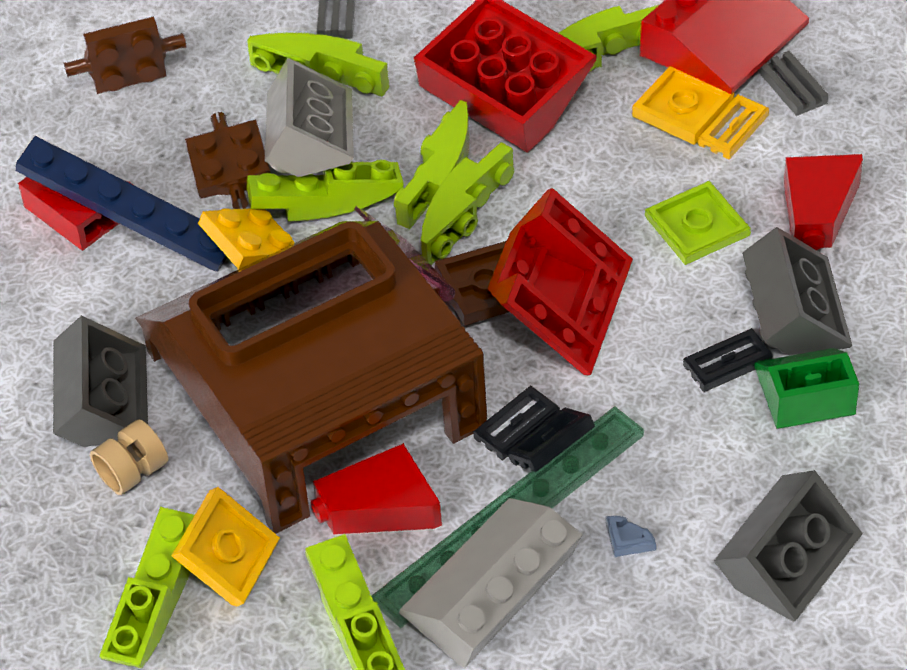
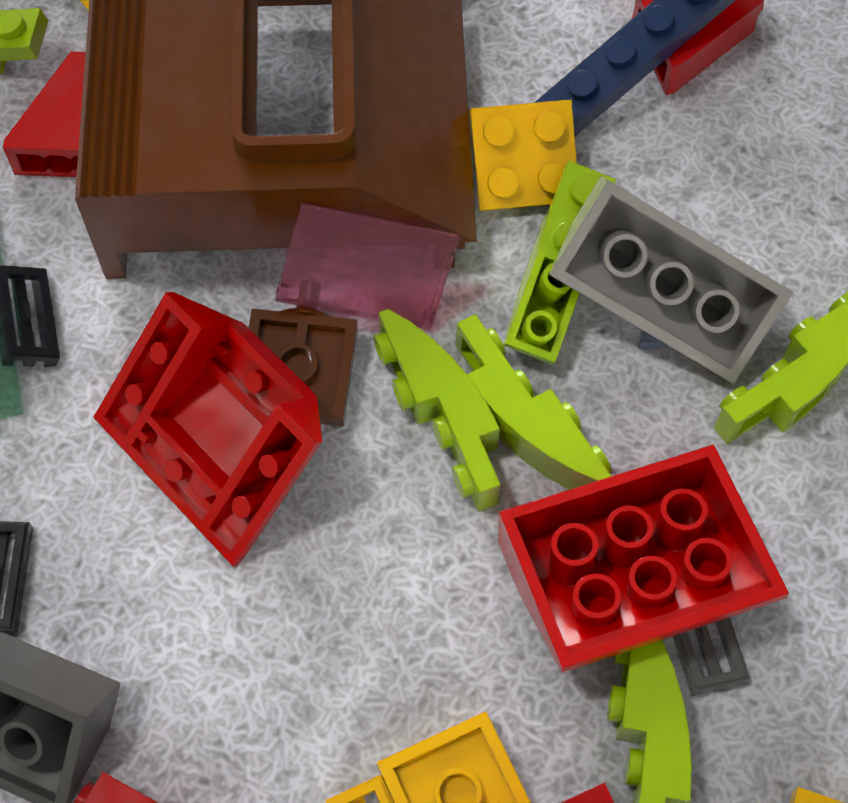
camera: 115 degrees right, 15 degrees up
(226, 158) = (698, 195): reddish brown plate -> none
(498, 442) = (89, 340): black tile -> none
(697, 222) = (235, 682): lime tile -> none

